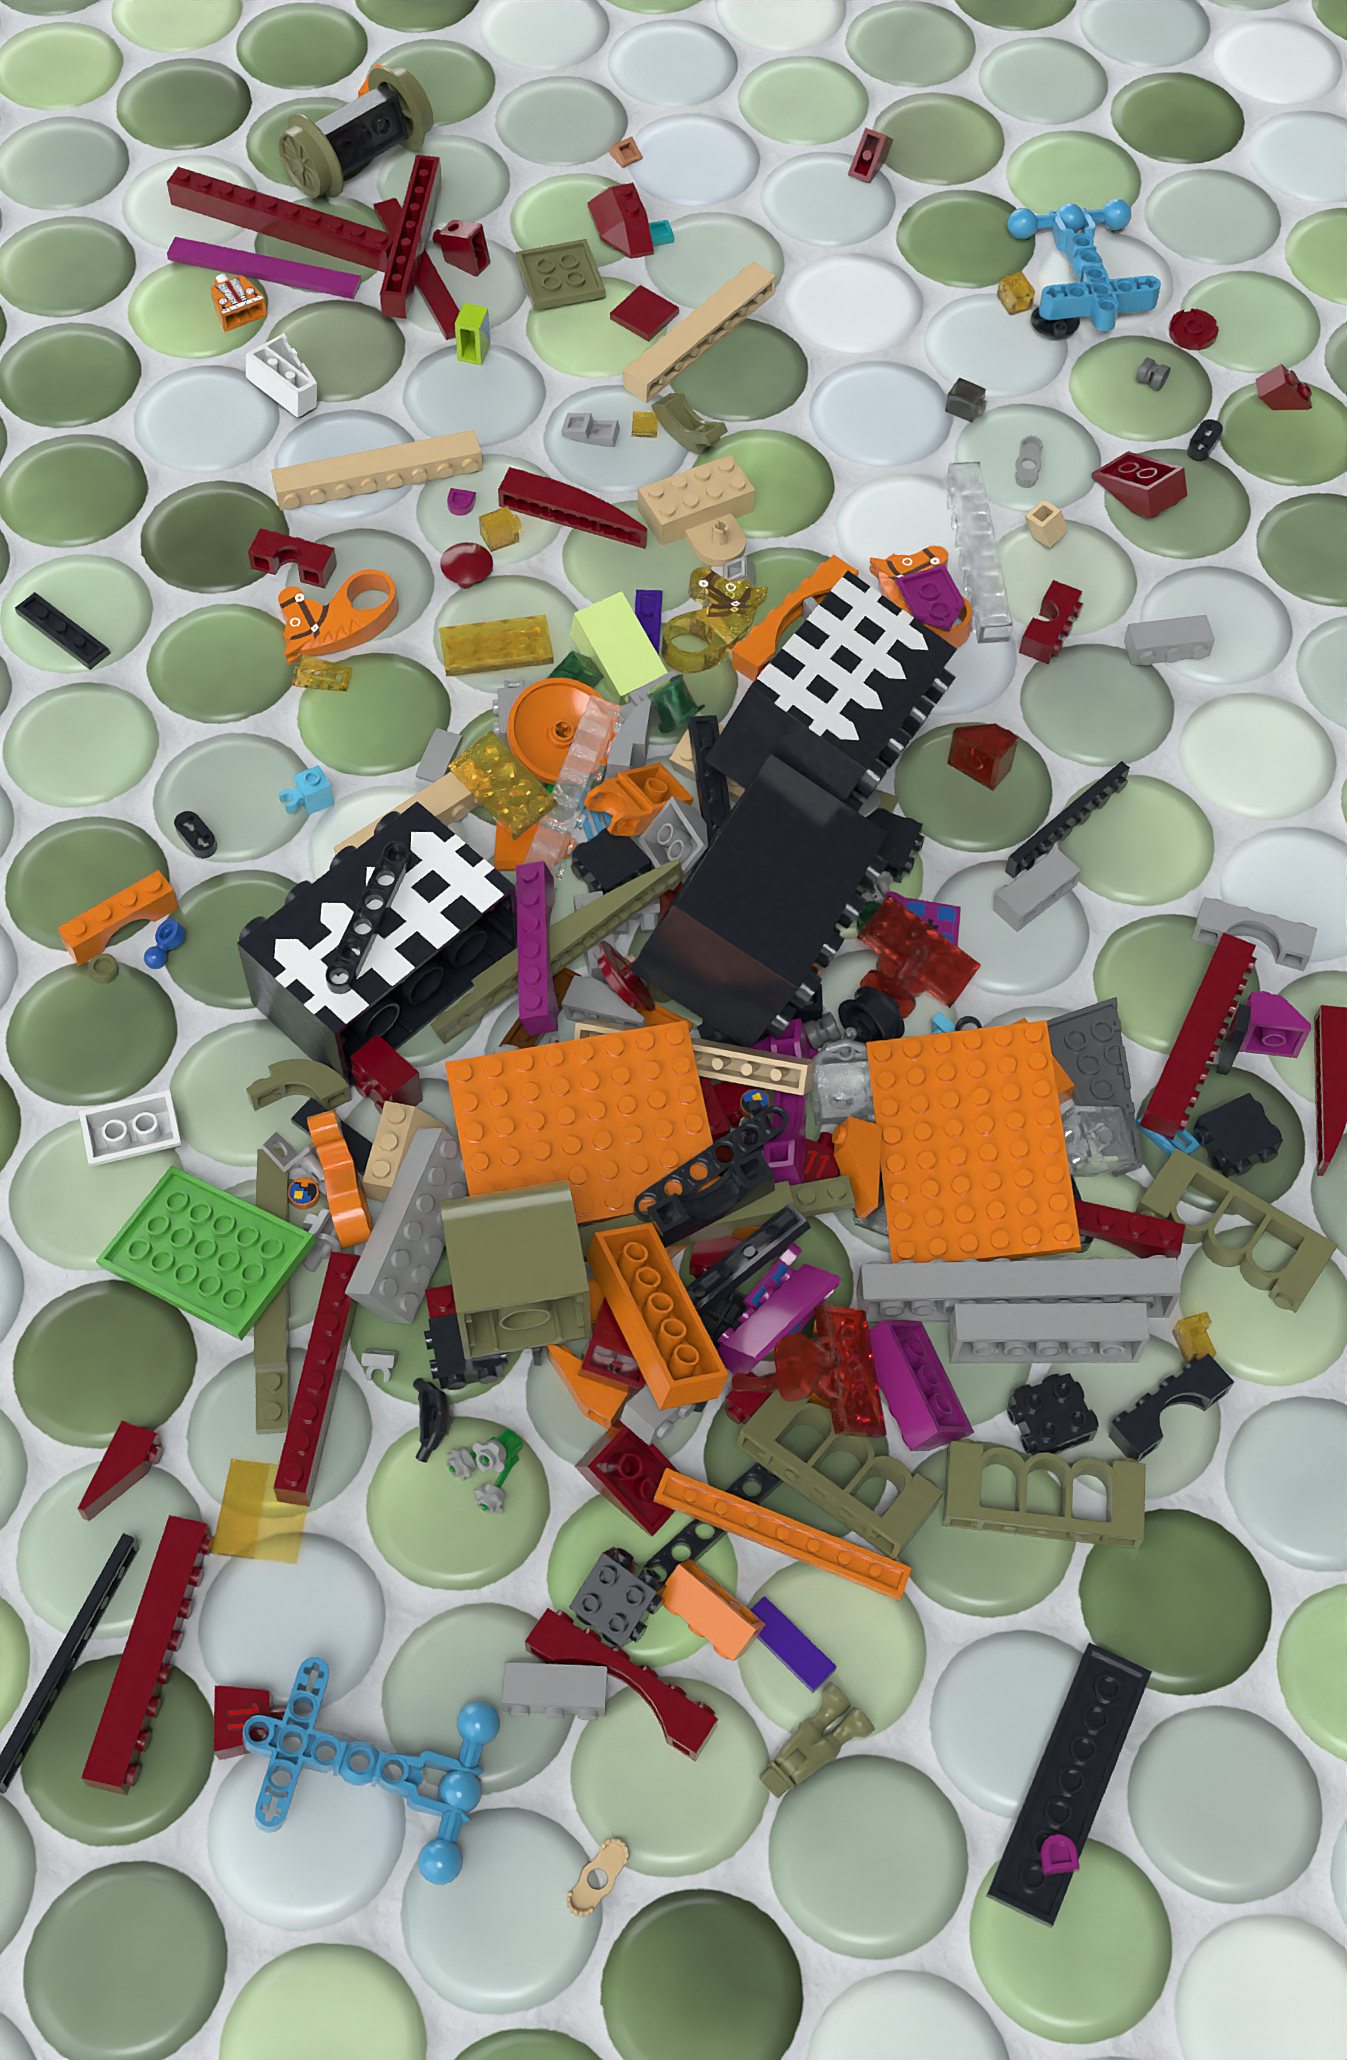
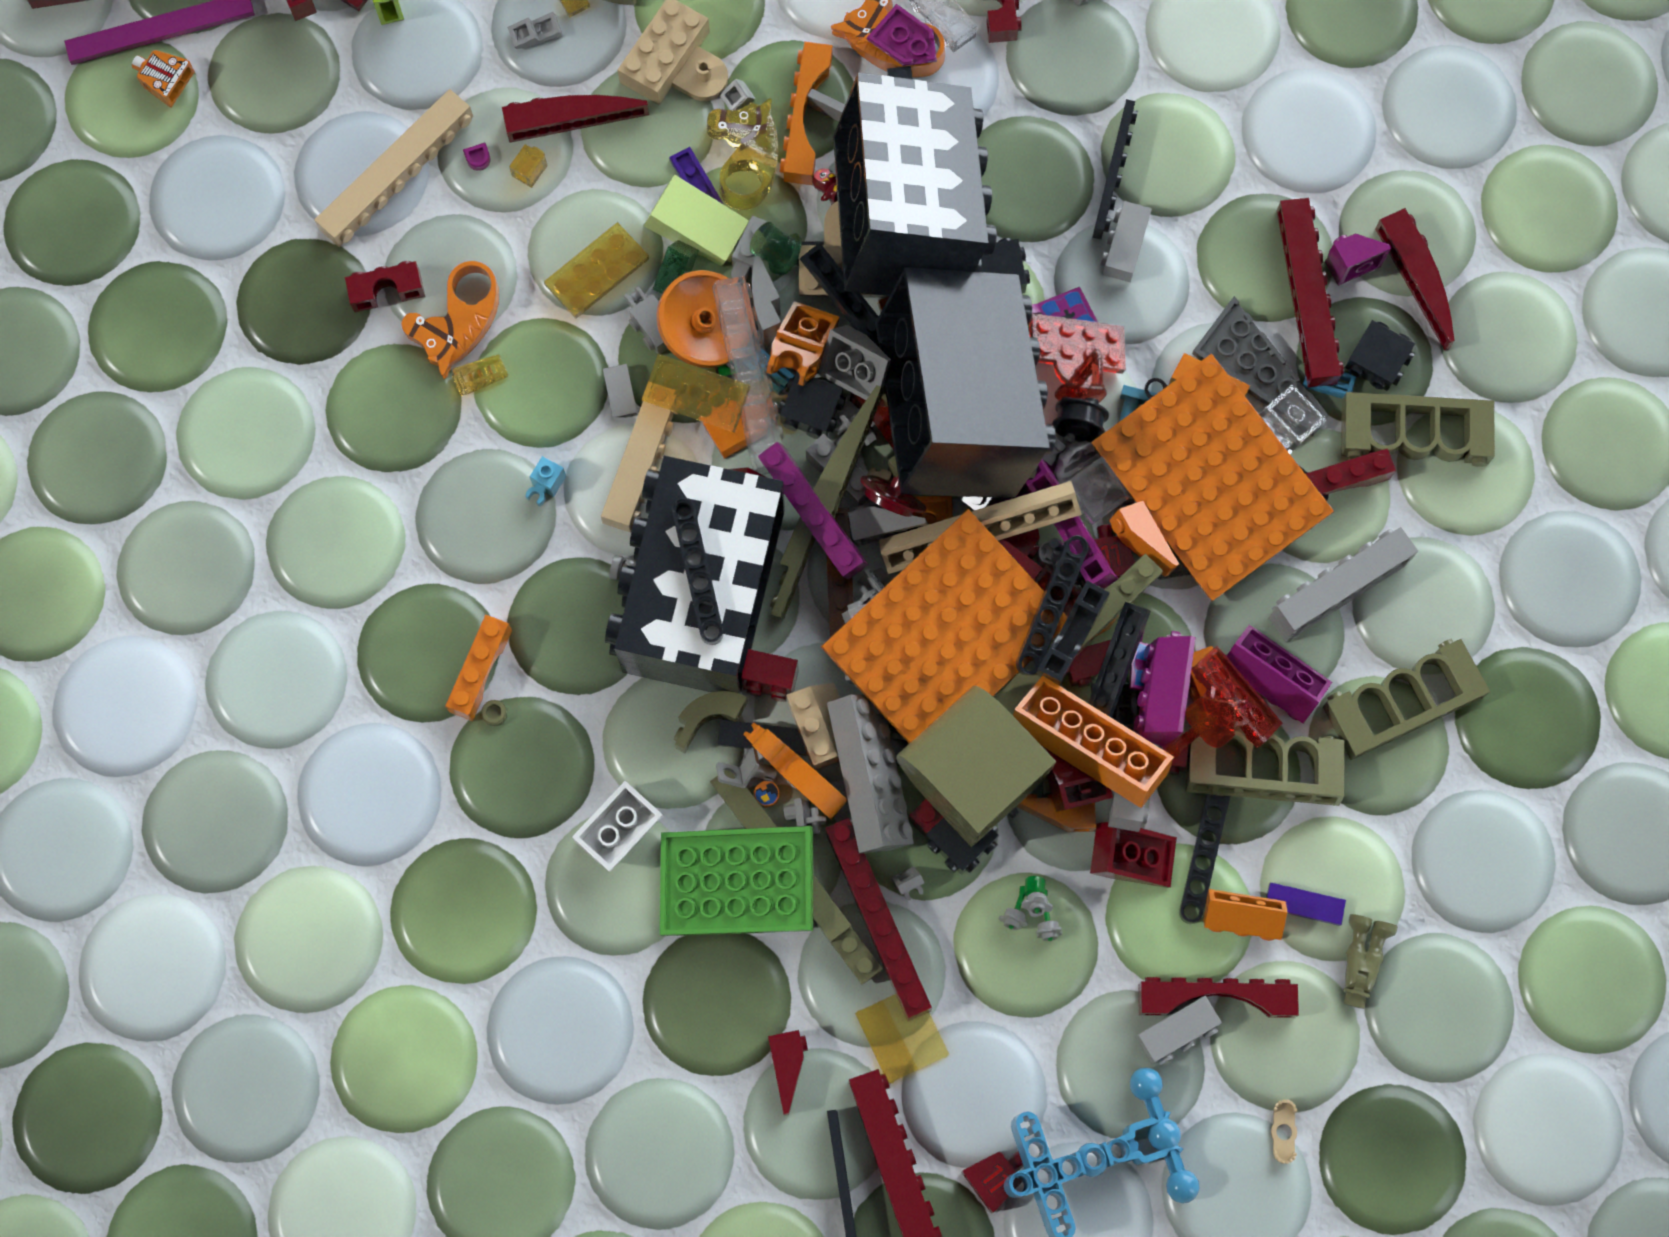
camera: 30 degrees left, 15 degrees up
(62, 630) = (248, 455): black tile -> none
(168, 936) = (526, 679): blue plate -> none
(191, 838) = (481, 570): black beam -> none
(282, 376) = (257, 126): white wedge -> none
(434, 1417) = (973, 898): black piece -> none
(466, 564) = (522, 210): dark red dish -> none
(619, 1597) = (1182, 945): black brick -> none
(751, 1095) = (1042, 536): tile -> none
(782, 1534) = (1256, 834): orange plate -> none
(932, 1289) = (1259, 595): light grey brick -> none
(983, 753) = (1024, 151): clear red slope -> none
(1052, 1415) = (1378, 640): black brick -> none
(1059, 1855) = (1559, 934): magenta tile -> none
(1069, 1781) = (1536, 882): black plate -> none
(1193, 1337) = (1436, 526): clear yellow panel -> none
(1199, 1386) = (1441, 614): black arch -> none
(1233, 1039) = (1340, 285): black tile -> none
(1286, 939) = (1327, 179): light grey arch -> none

